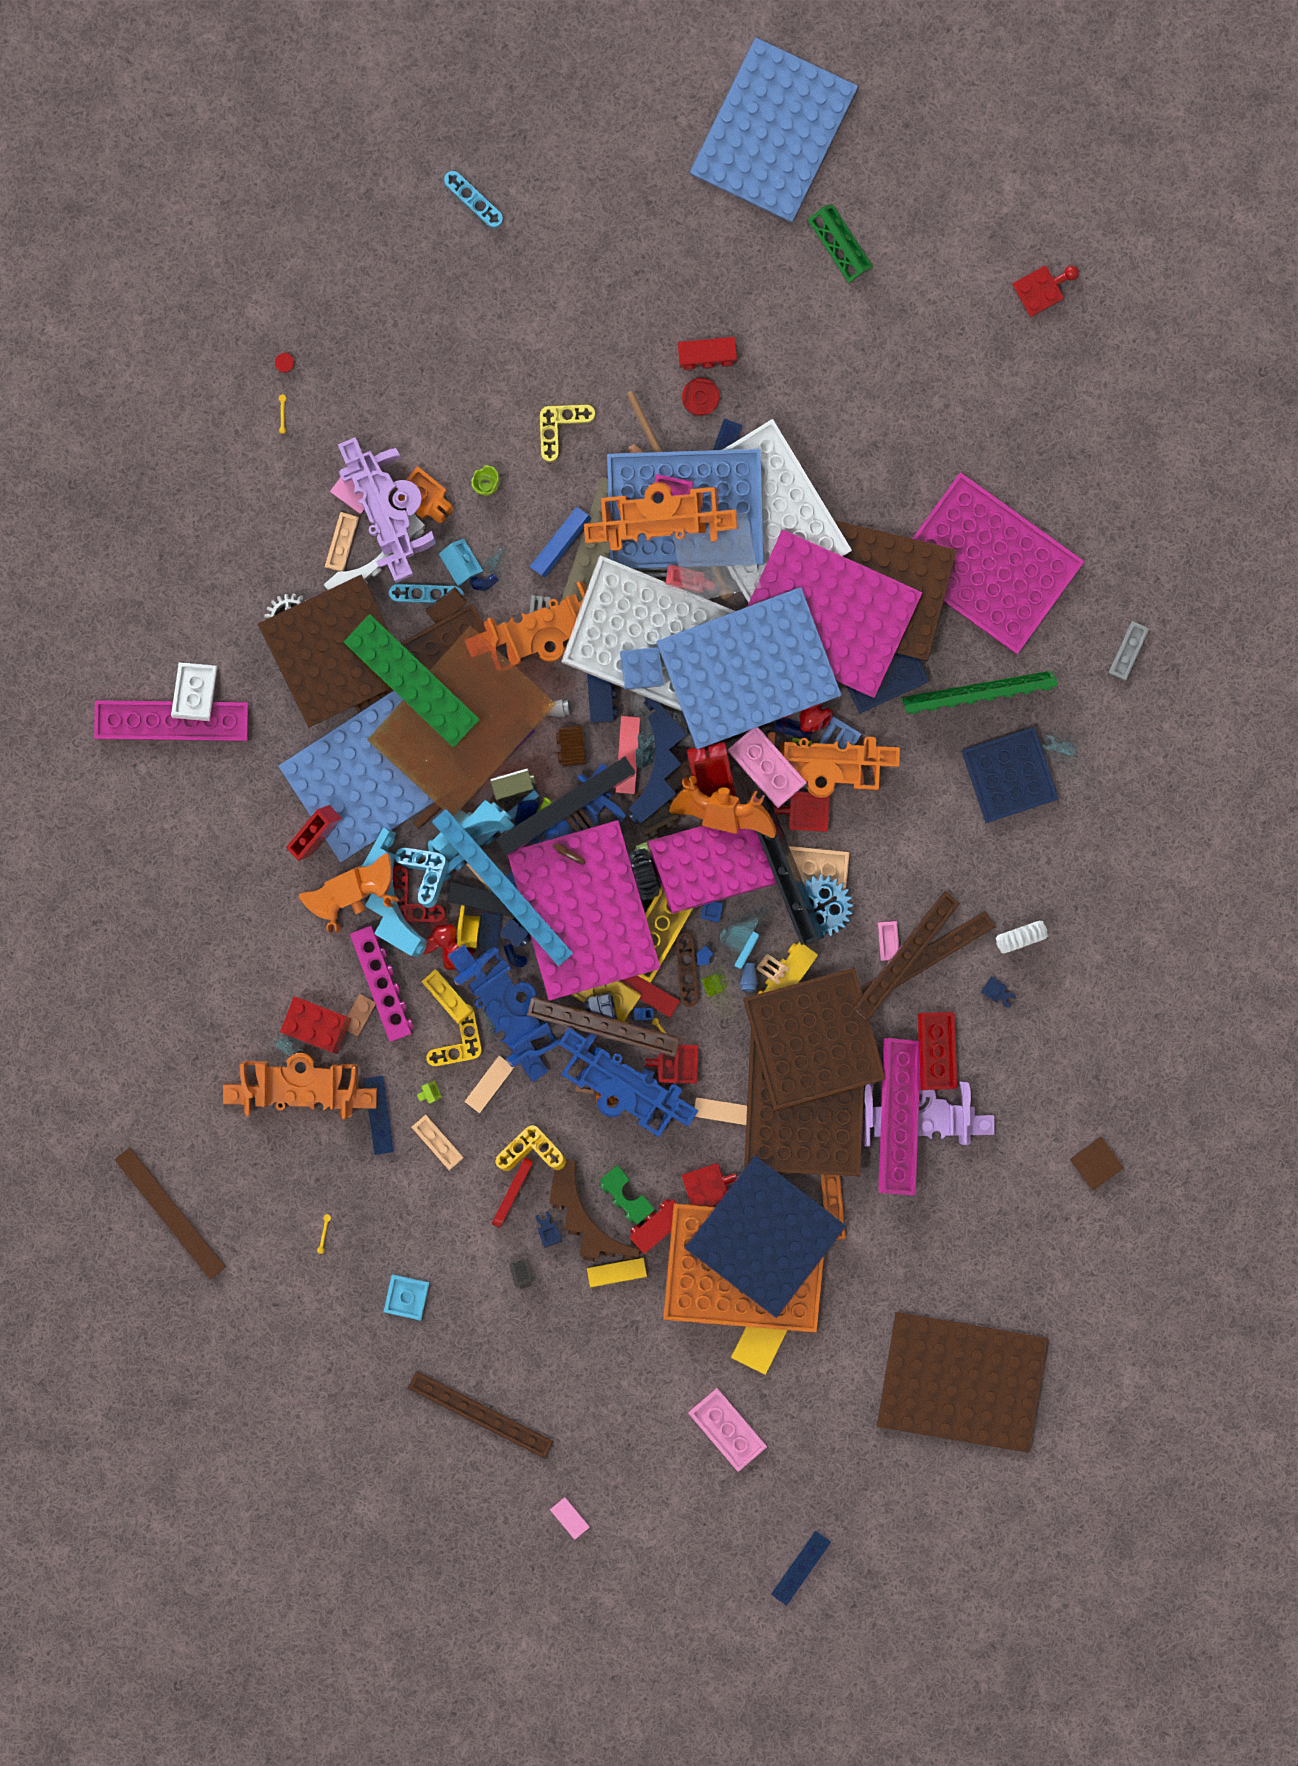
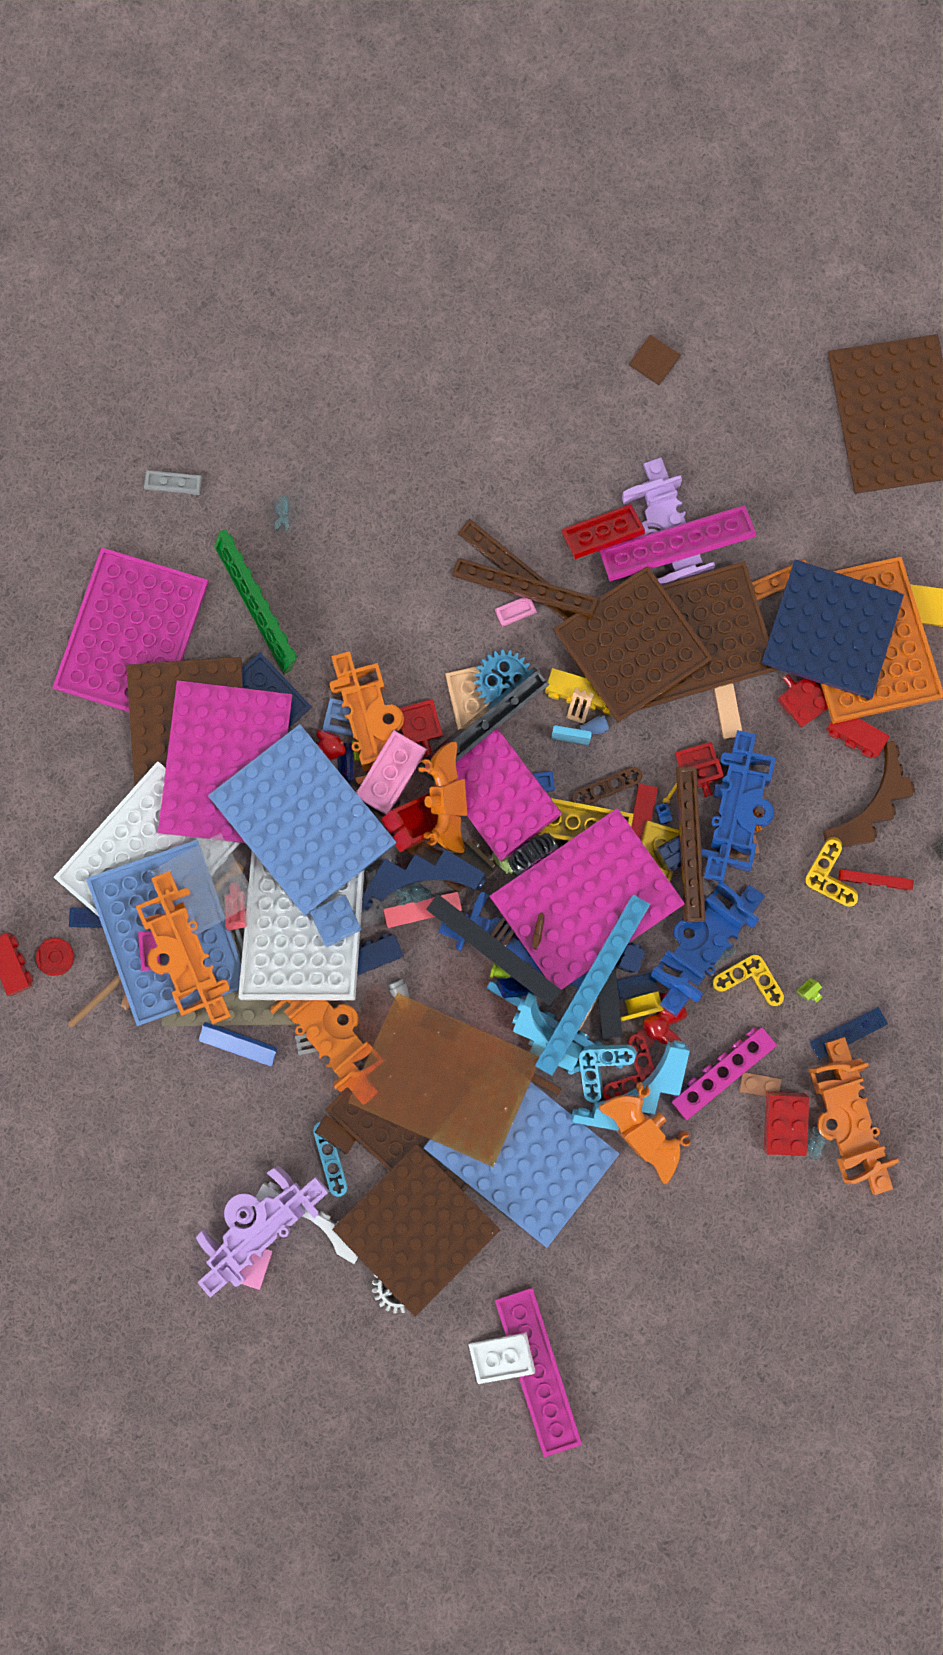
camera: 110 degrees left, 5 degrees down
(282, 398) = (181, 1370): yellow hinge -> none
(284, 362) = (145, 1380): red tile -> none
(313, 832) = (601, 1189): red brick -> none
(342, 542) = (305, 1260): light nougat tile -> none
(412, 681) = (421, 1142): green plate -> none
(431, 496) = (232, 1185): orange plate -> none
(437, 1142) = (853, 967): light nougat tile -> none
(447, 996) = (712, 1005): yellow tile -> none
(460, 561) = (288, 1135): medium azure panel -> none
(483, 584) = (303, 1106): clear blue arm -> none
(486, 473) = (192, 1137): lime hair -> none
(489, 1084) = (781, 937): light nougat tile -> none
(492, 561) = (278, 1104): clear light blue hand -> none
(513, 785) = (488, 1009): olive piece -> none
(513, 958) = (654, 952): clear blue arm -> none
(549, 1232) = (900, 832): dark blue plate -> none
(558, 419) = (118, 1086): light yellow beam -> none
(572, 746) = (432, 966): reddish brown brick -> none
(616, 1272) = (914, 758): yellow tile -> none
(636, 1209) = (848, 758): green arch -> none
(703, 956) = (589, 775): blue piece -> none
(712, 985) = (613, 757): clear neon green tile -> none
(737, 935) = (559, 747): clear light blue slope -> none
(995, 991) = (528, 499): dark blue plate -> none
(1010, 775) = (324, 551): dark blue plate -> none
(1021, 937) = (471, 488): white gear -> none

